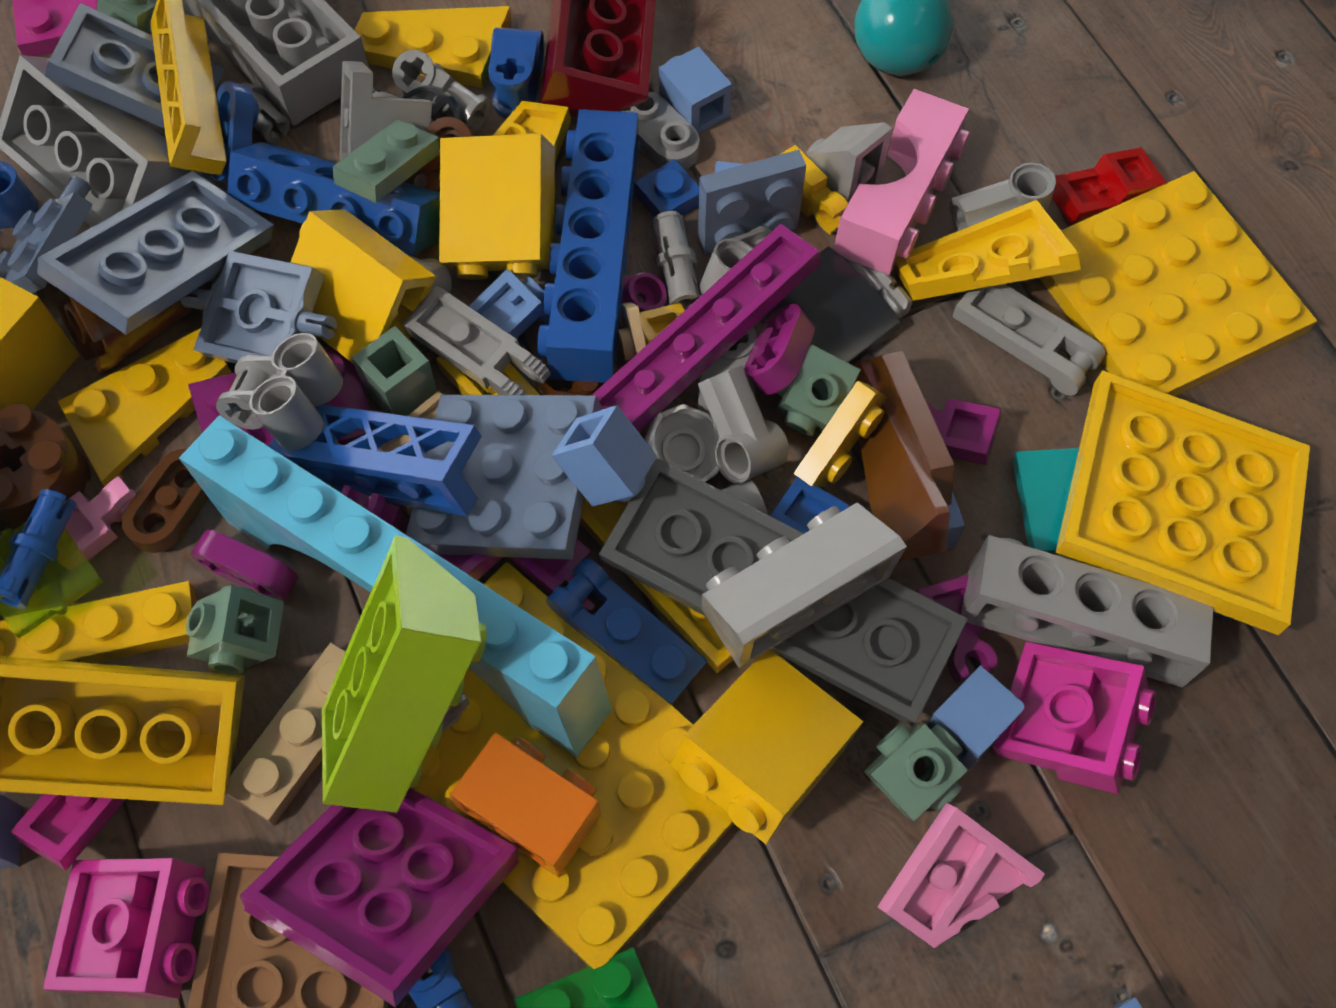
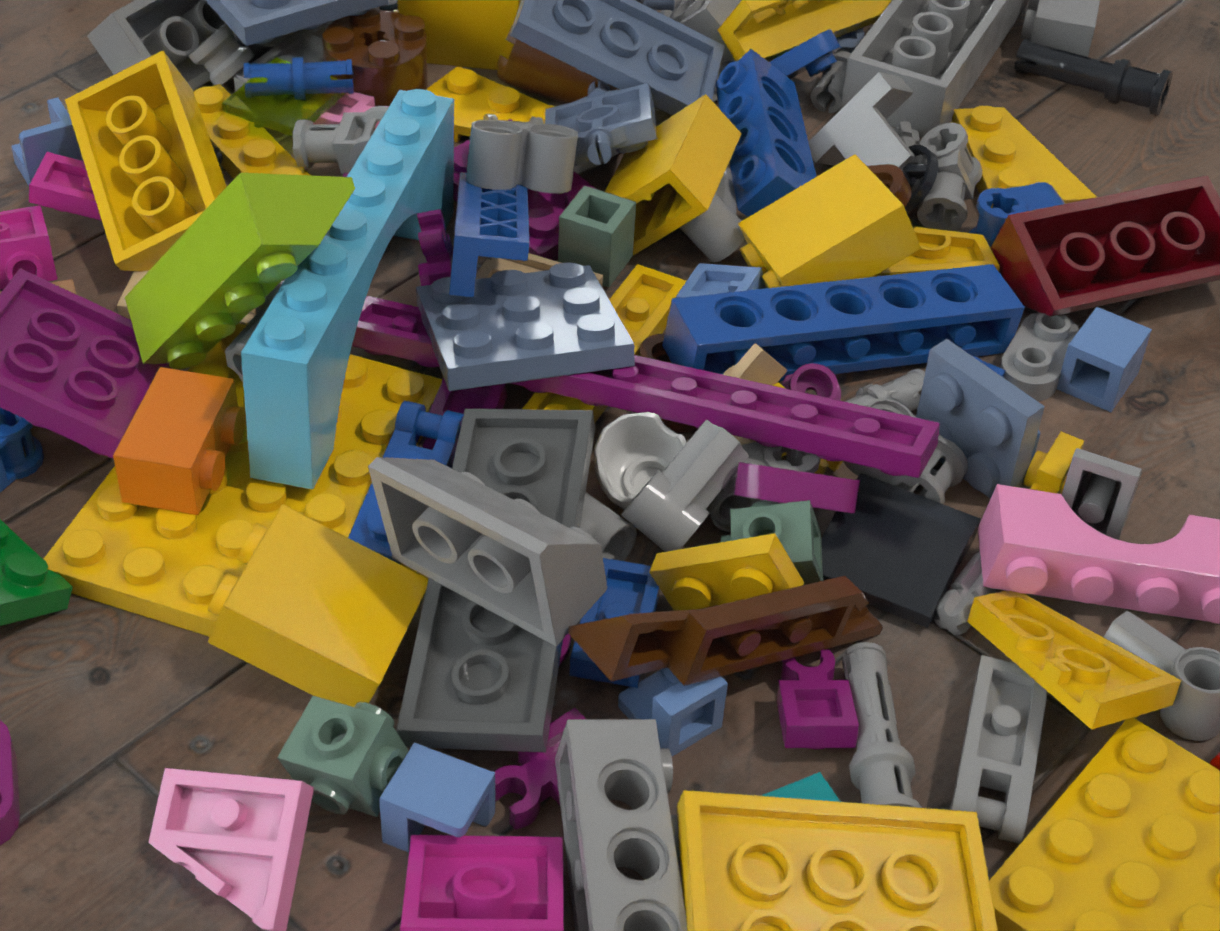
camera: 65 degrees right, 20 degrees down
(160, 529) = (335, 142): none -> light grey connector
(386, 160) = (810, 139): sand green plate -> none
(471, 343) = (658, 269): light grey hinge -> none
(605, 456) = (558, 358): medium blue brick -> none
(1023, 411) = (880, 765): none -> light grey pin

